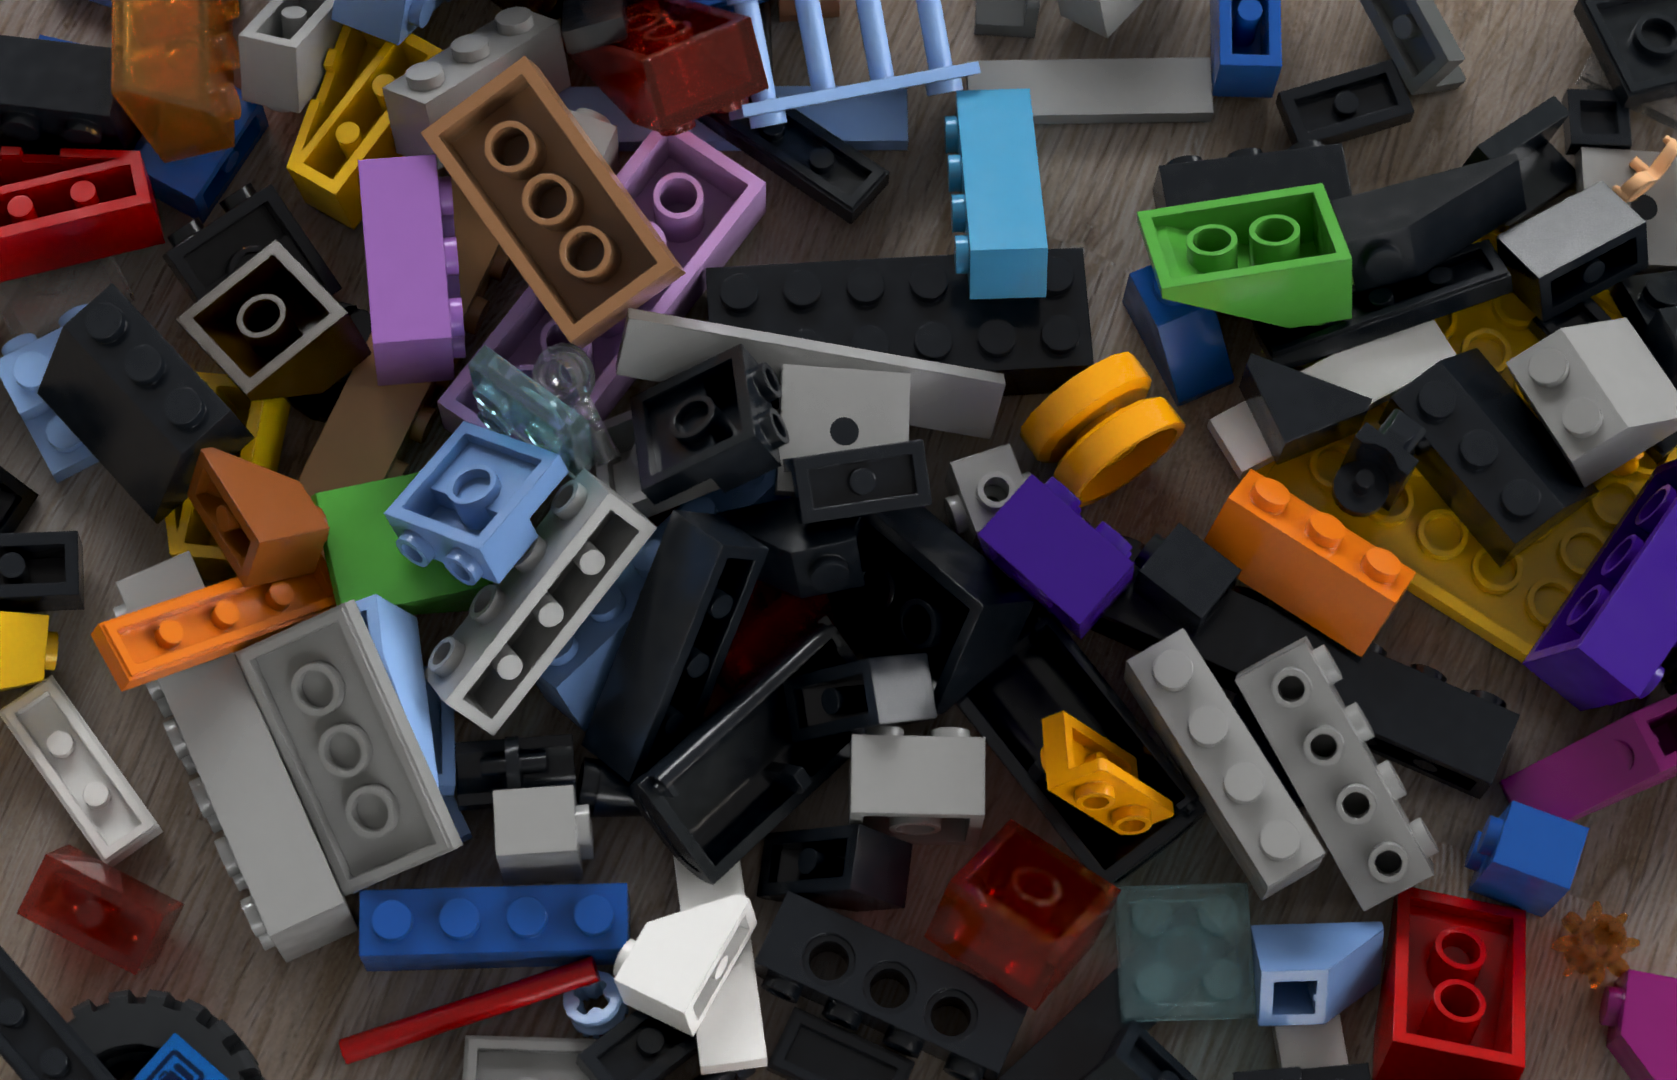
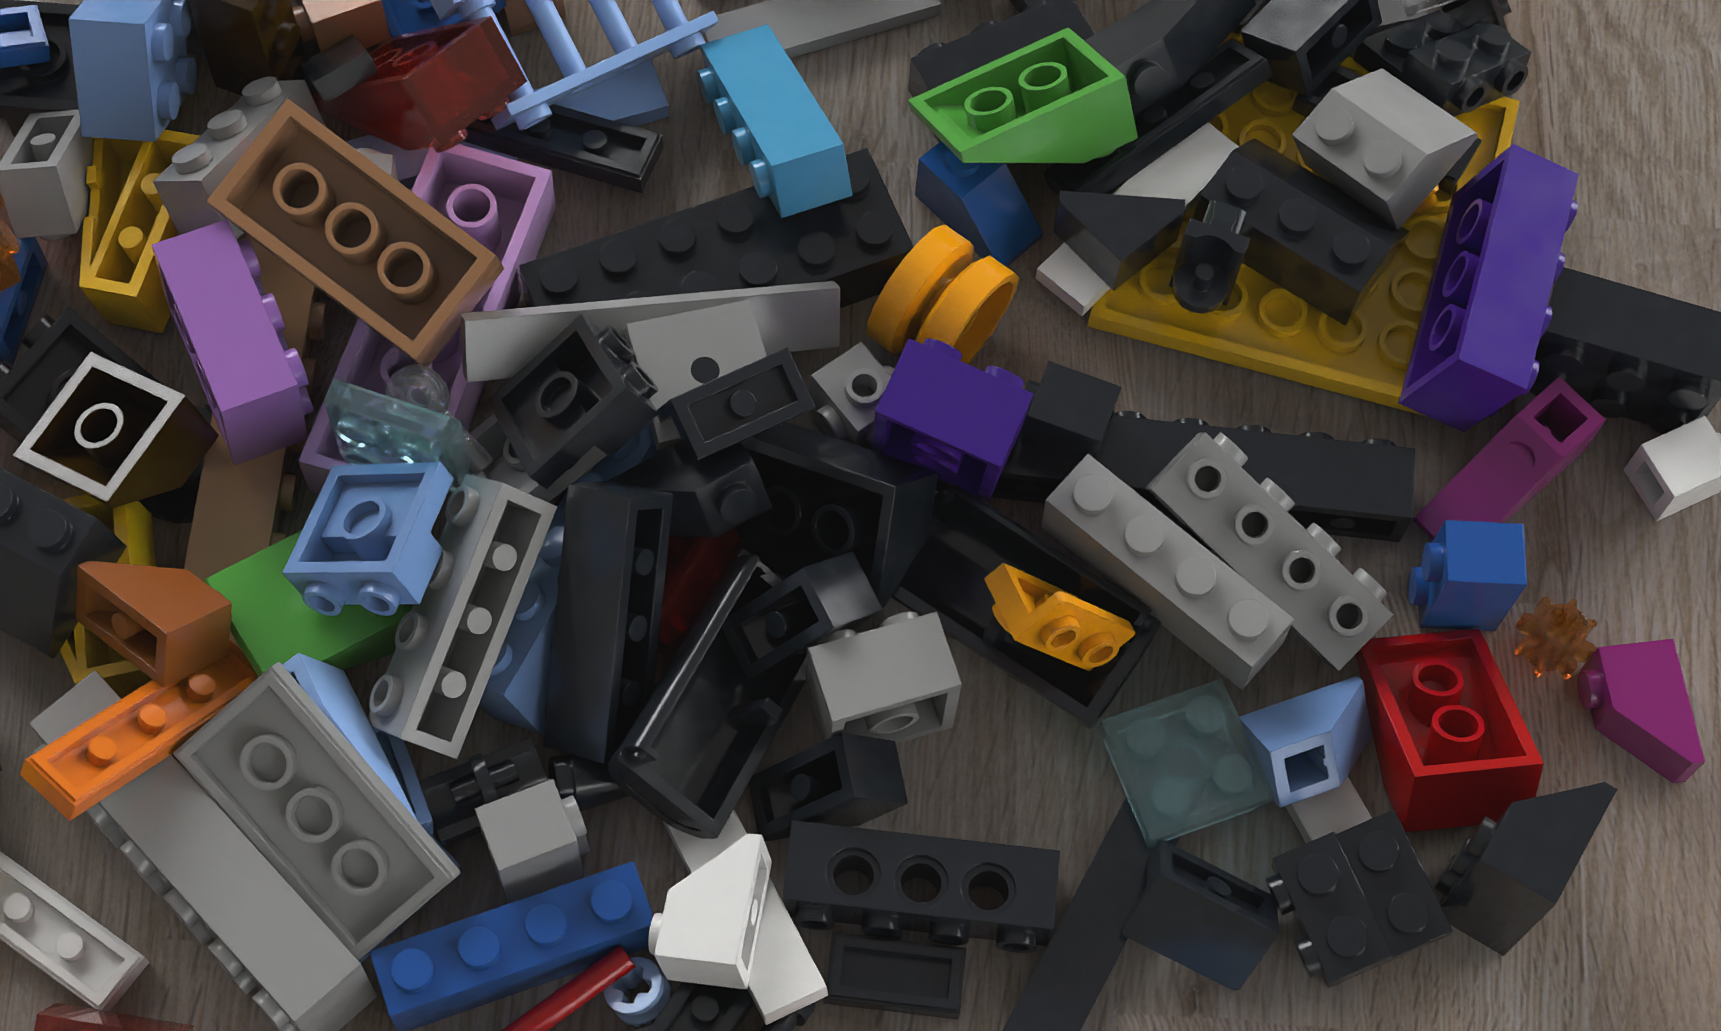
camera: 20 degrees left, 5 degrees down
(1022, 914) = (1023, 771): clear red brick -> none
(1309, 562) = (1179, 365): orange slope -> none

